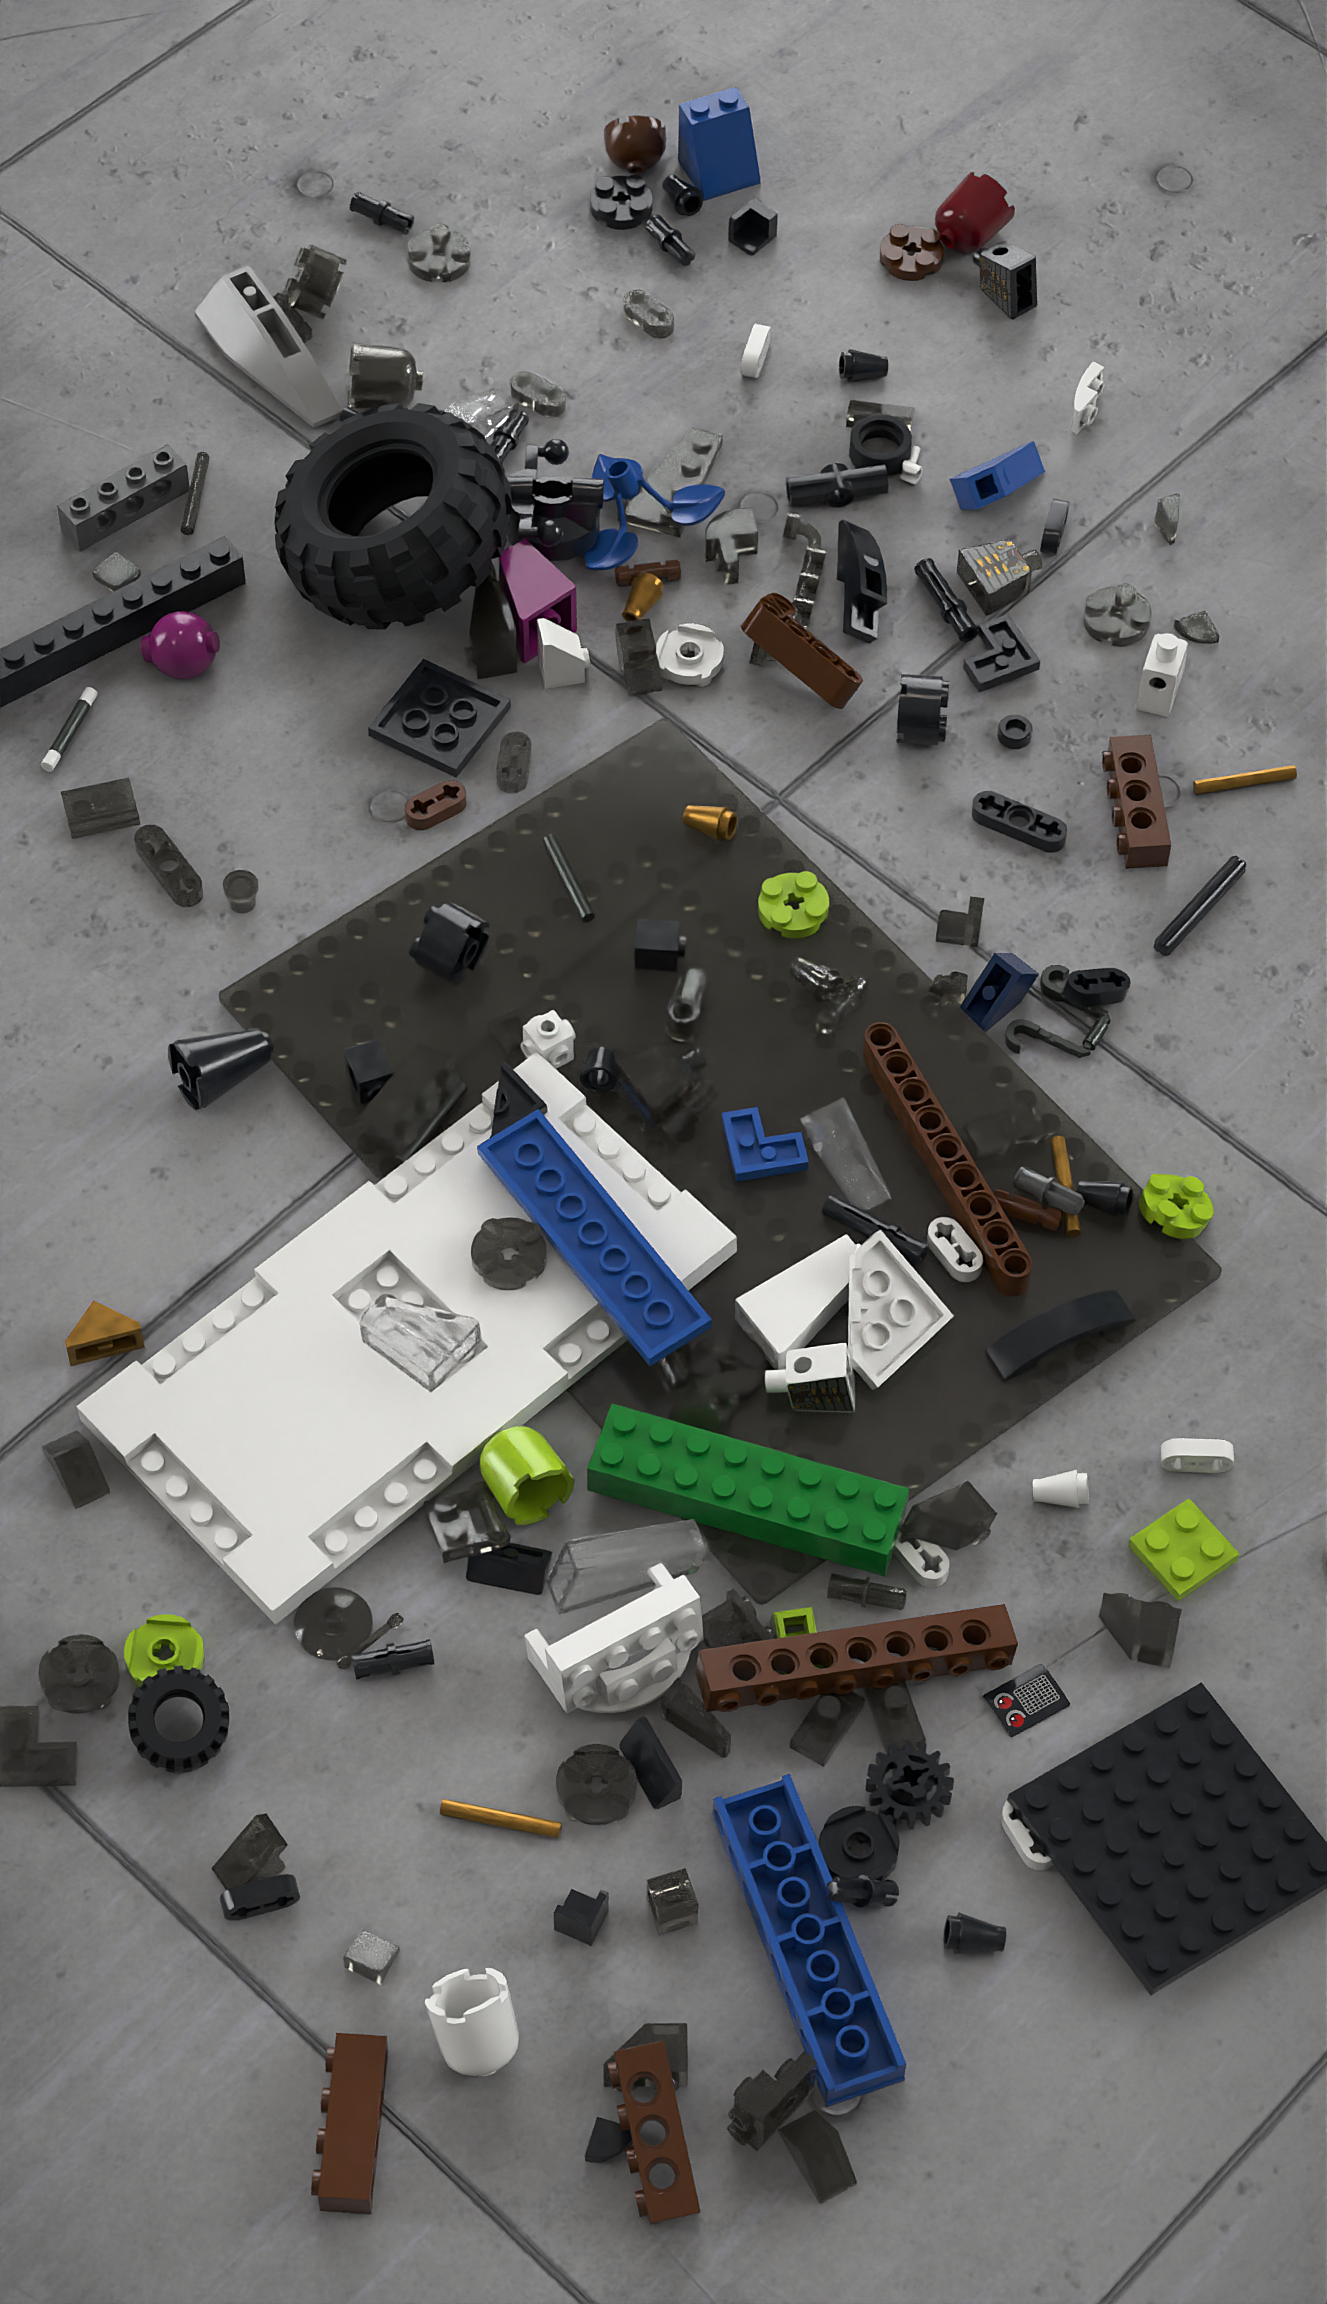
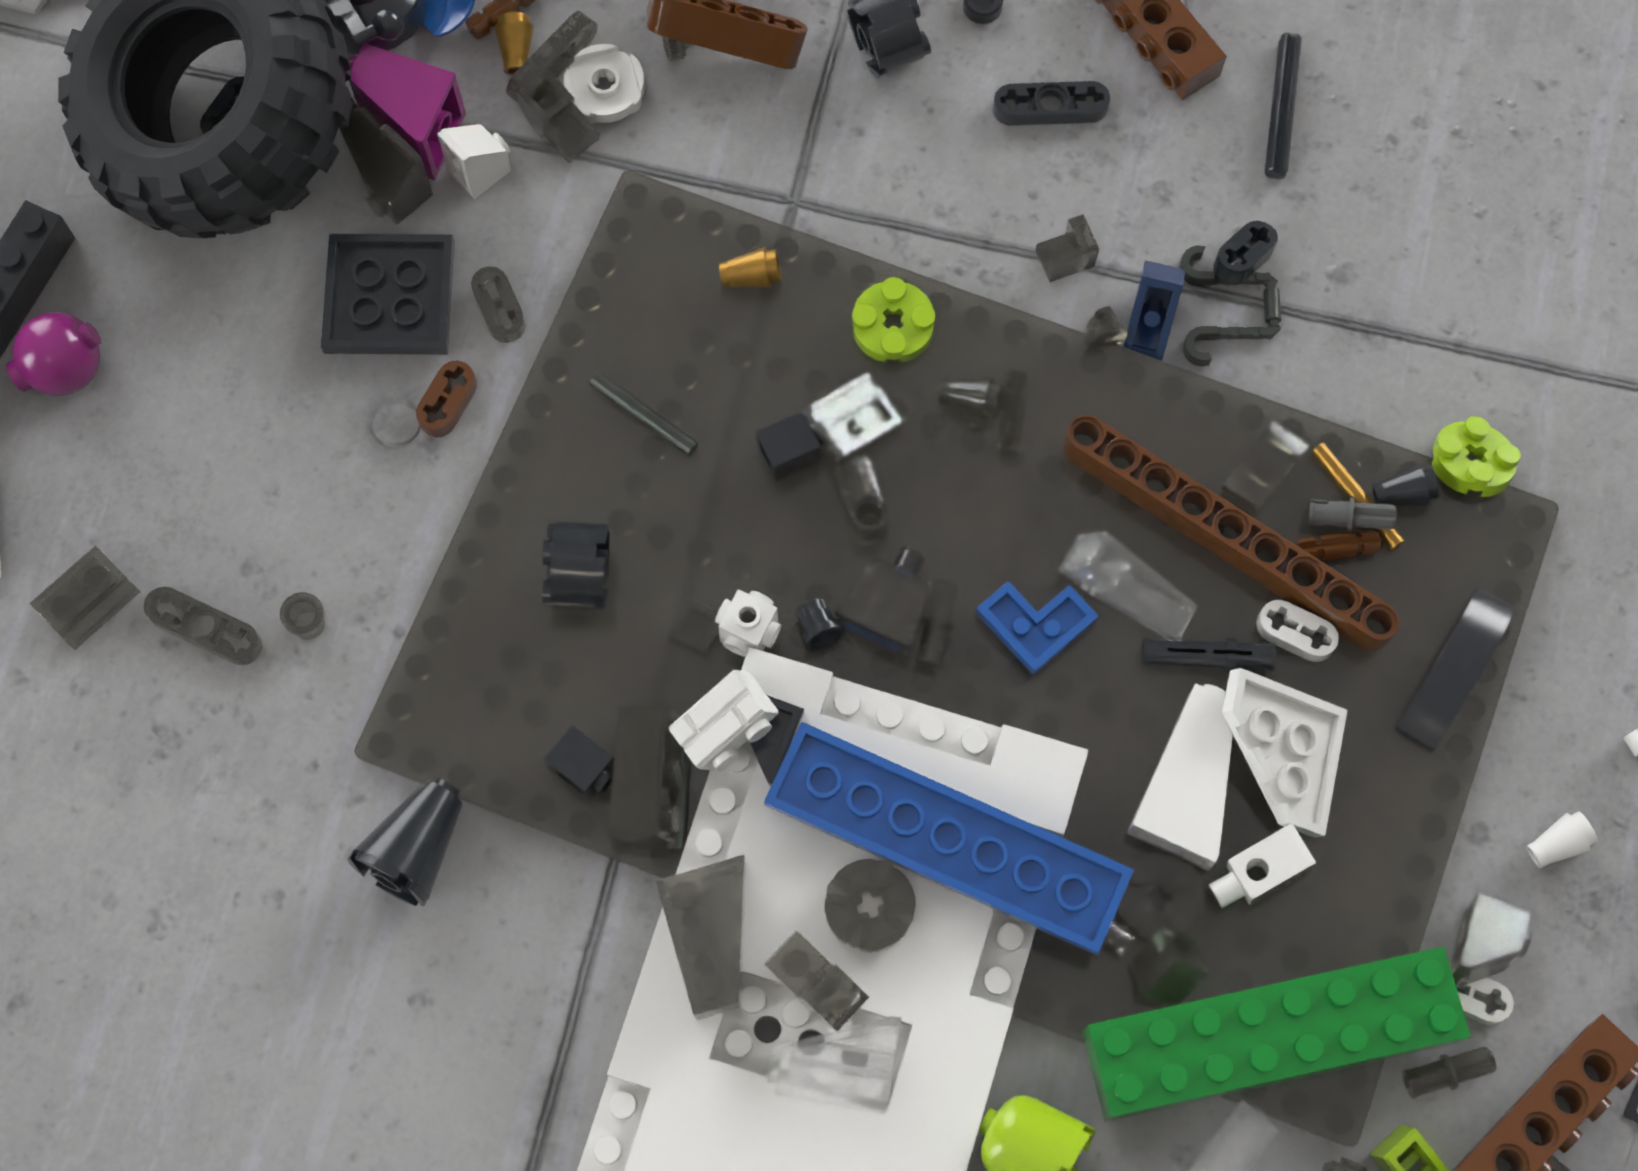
camera: 30 degrees left, 15 degrees up
(382, 1206) = (706, 929): none -> clear smoke wedge
(435, 1271) = (816, 981): none -> clear smoke brick
(483, 1079) = (724, 721): none -> white brick
(680, 611) = (555, 52): none -> clear smoke beam
(716, 946) = (852, 417): none -> clear smoke plate

